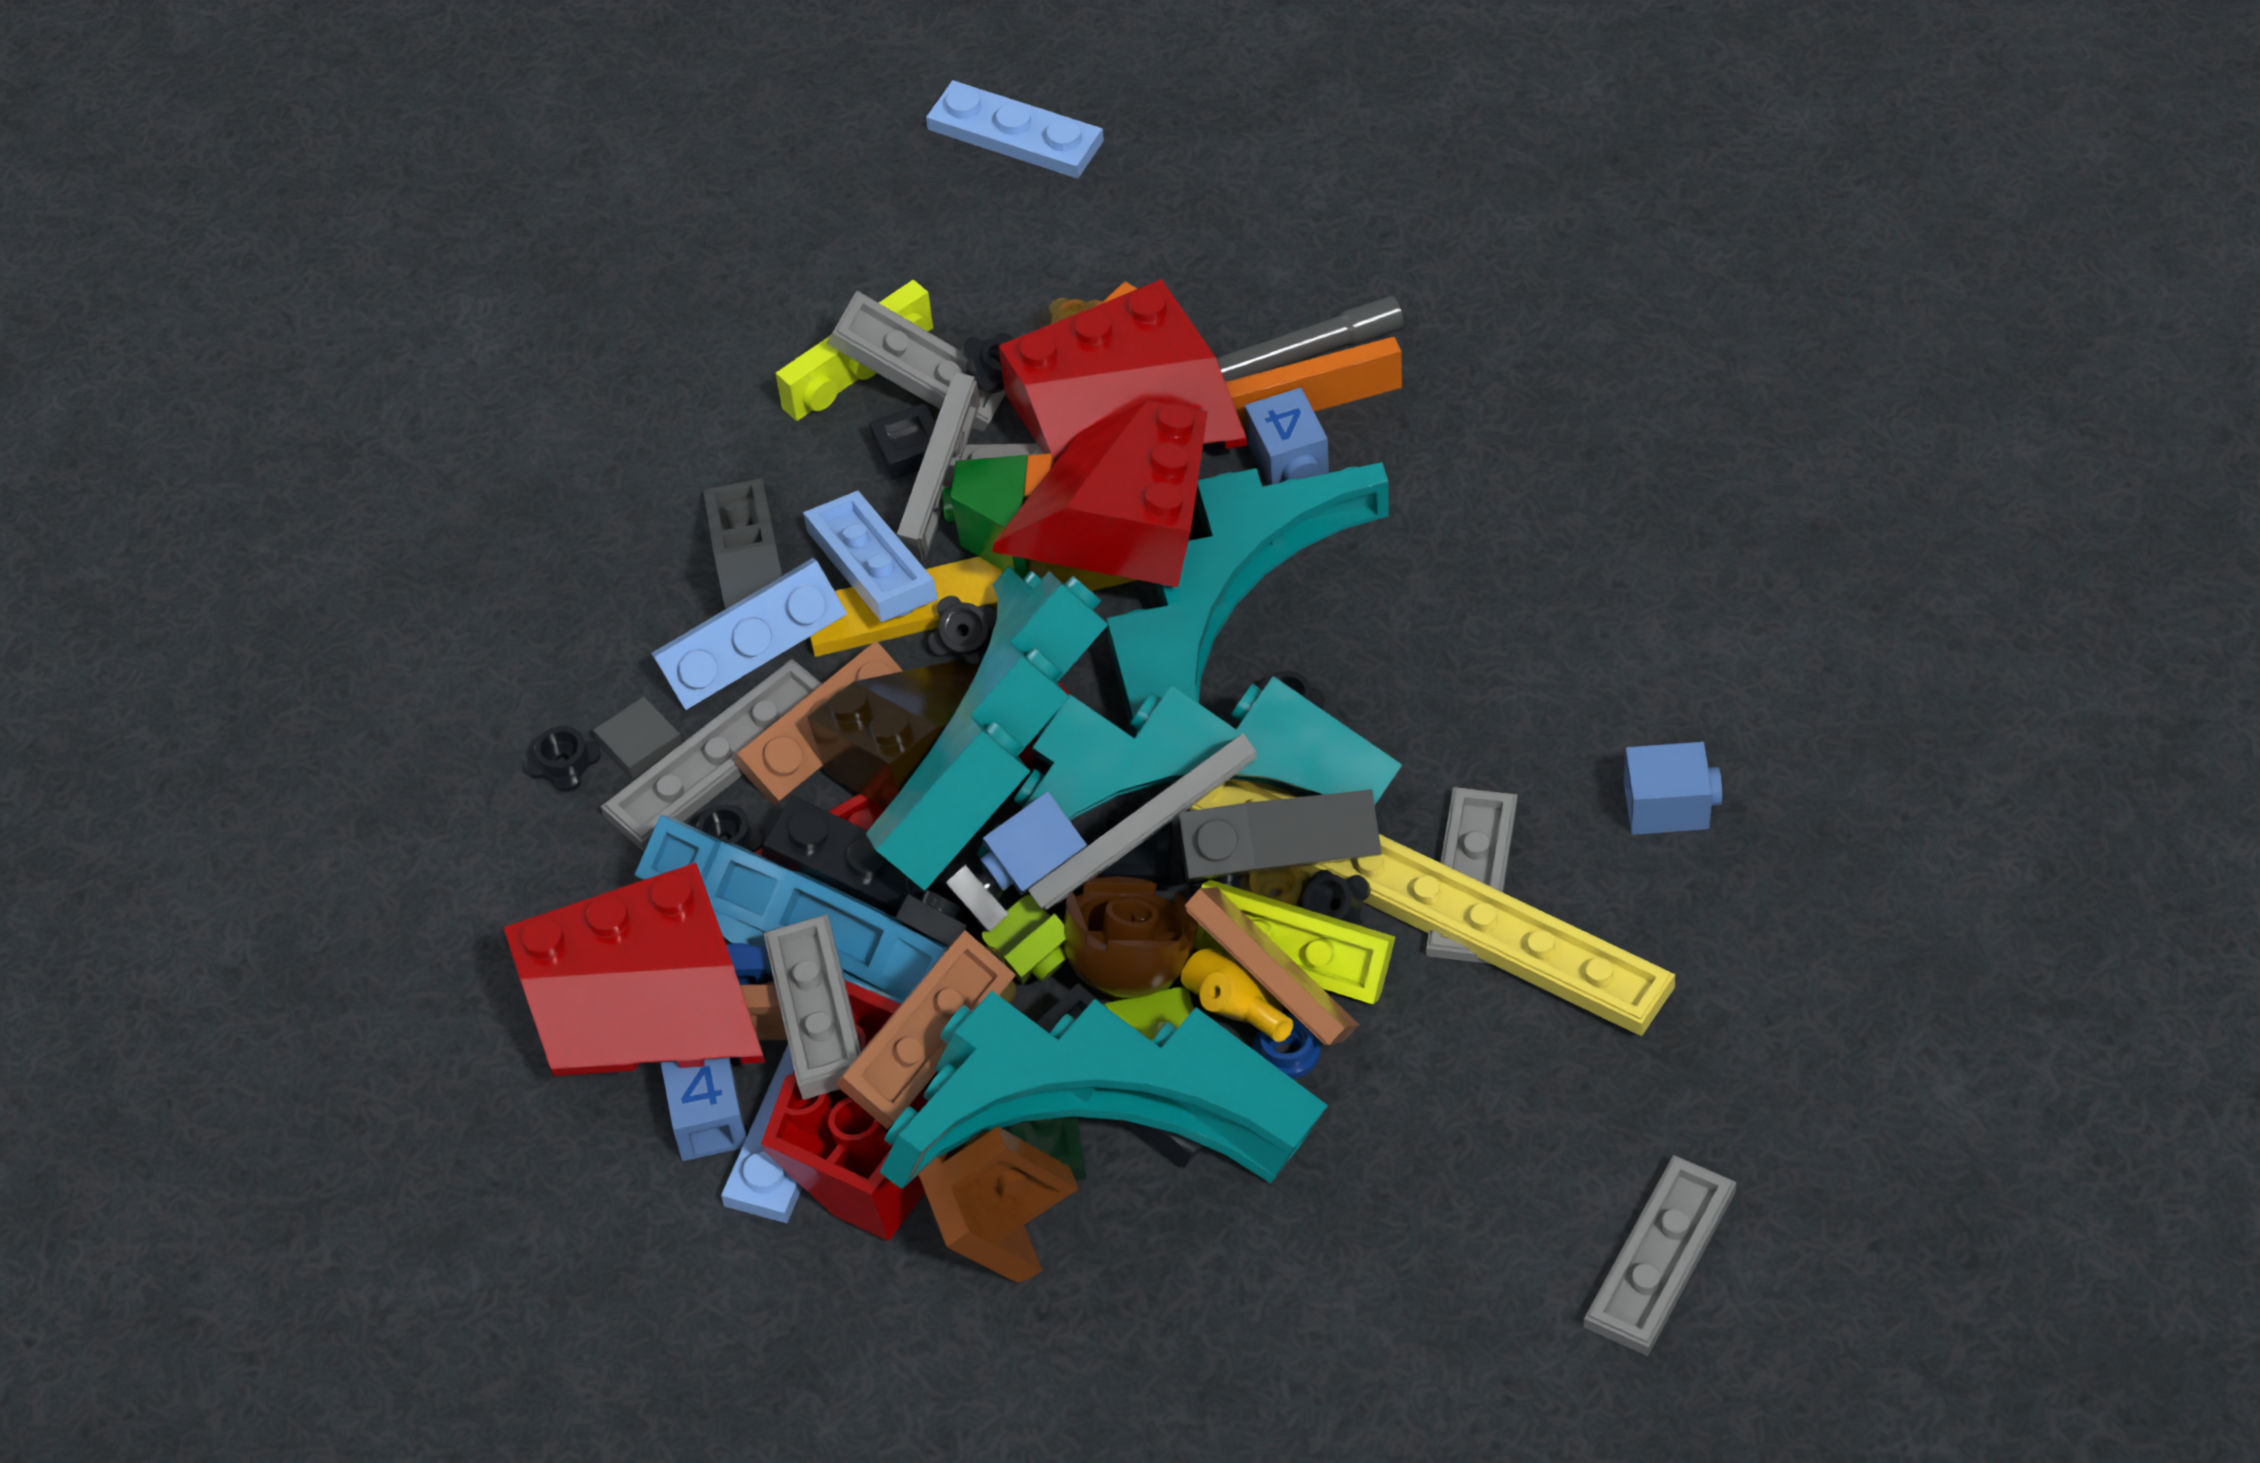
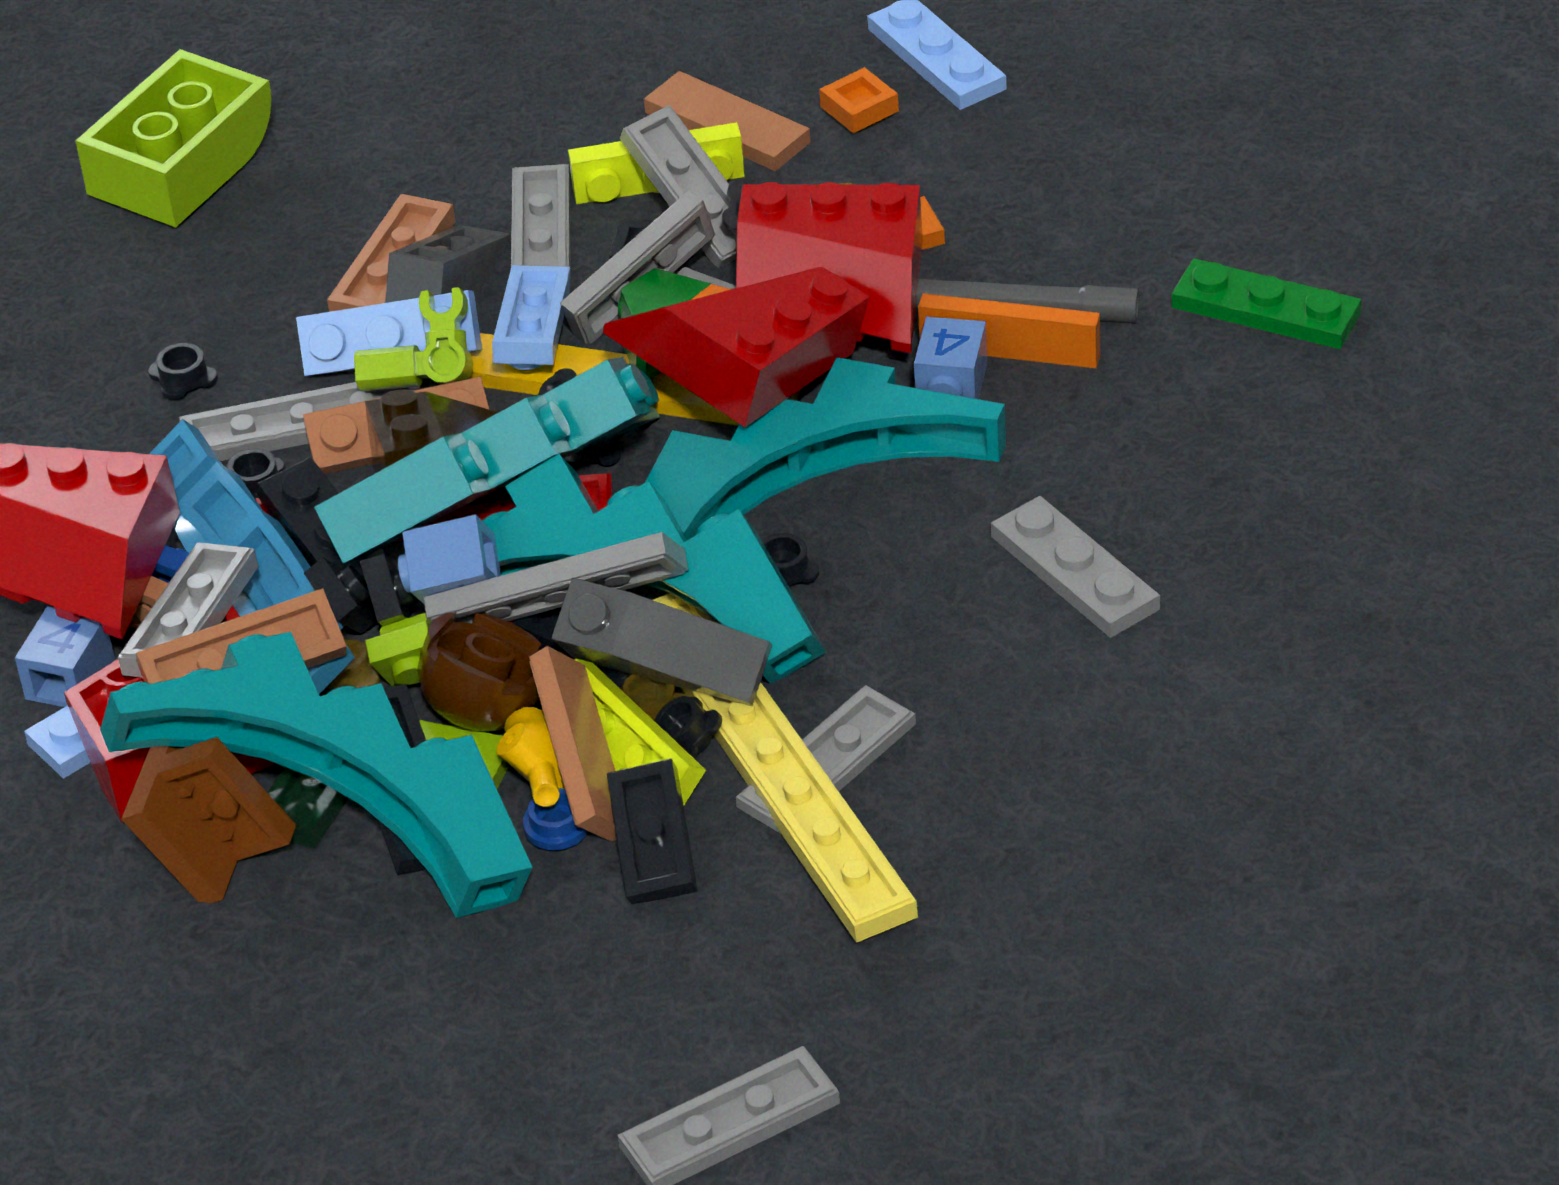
camera: 30 degrees right, 10 degrees down
(368, 517) = (175, 137): none -> lime brick
(637, 737) = (251, 378): dark grey tile -> none
(676, 554) = (404, 224): none -> nougat plate
(781, 452) = (541, 216): none -> light grey tile
(832, 640) = (405, 366): none -> lime bar
(839, 272) = (764, 134): none -> nougat tile
(987, 207) = (859, 100): none -> orange plate
(1394, 1018) = (652, 832): none -> black plate
(1503, 262) = (1266, 303): none -> green plate
(1538, 589) = (1075, 566): none -> light grey plate
(1670, 788) = (1044, 759): medium blue brick -> none

